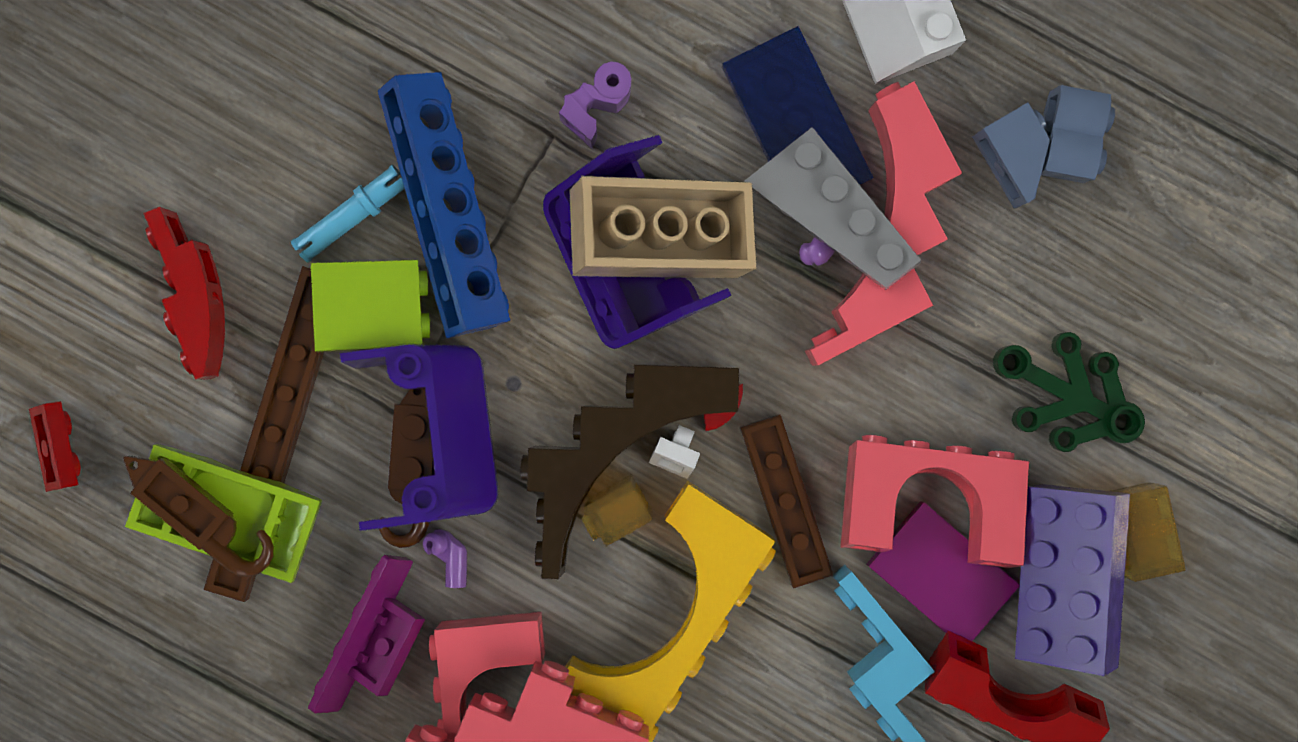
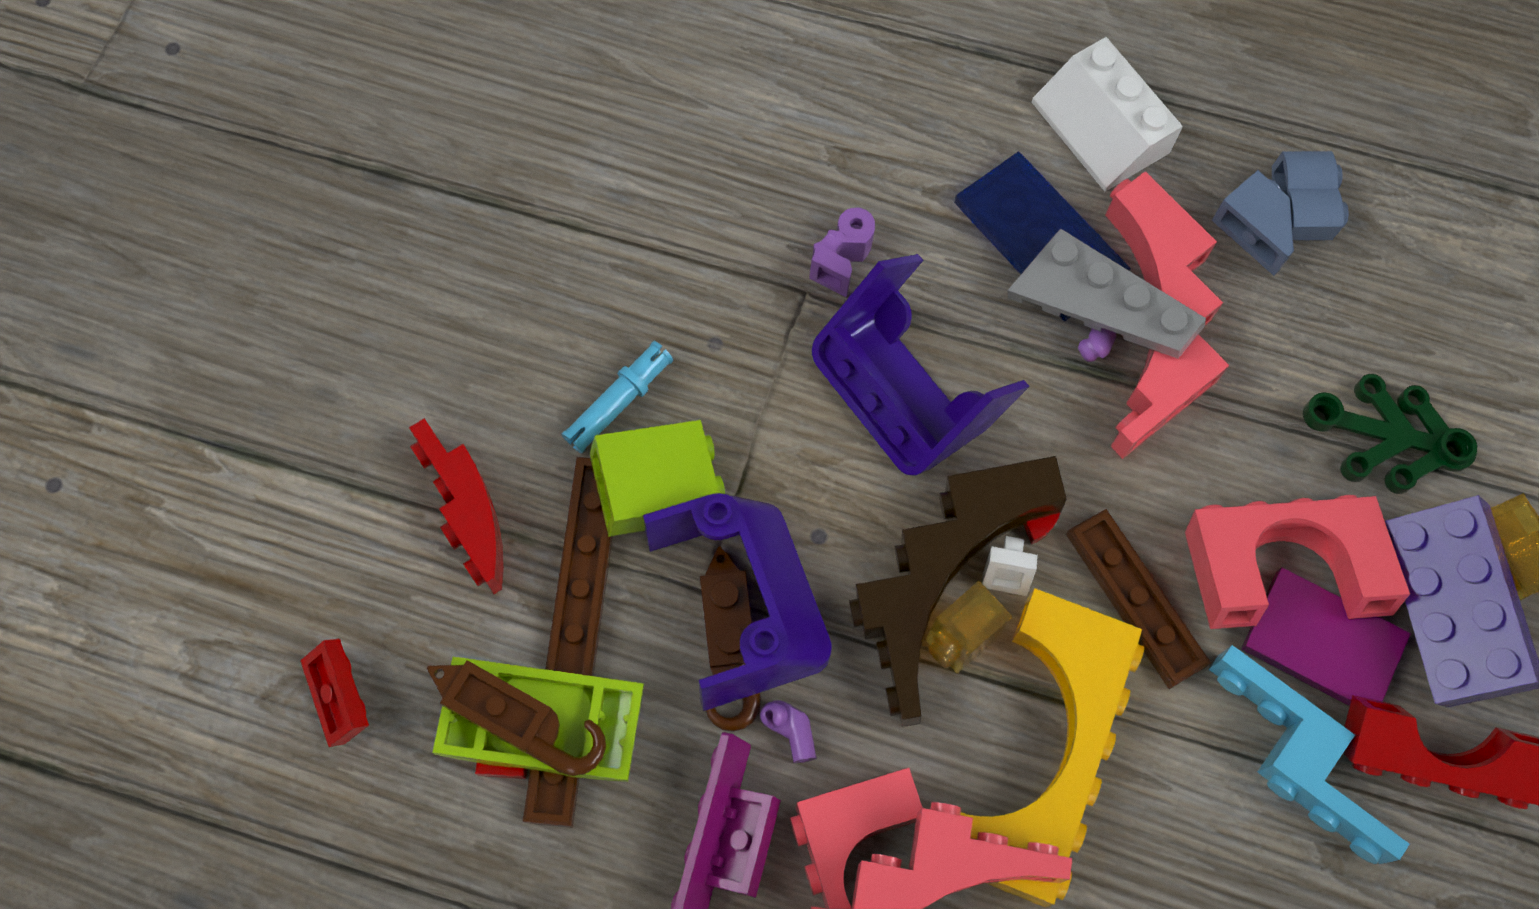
camera: 15 degrees left, 20 degrees down
(403, 103) = (716, 369): blue brick -> none
(661, 228) = (941, 340): tan brick -> none

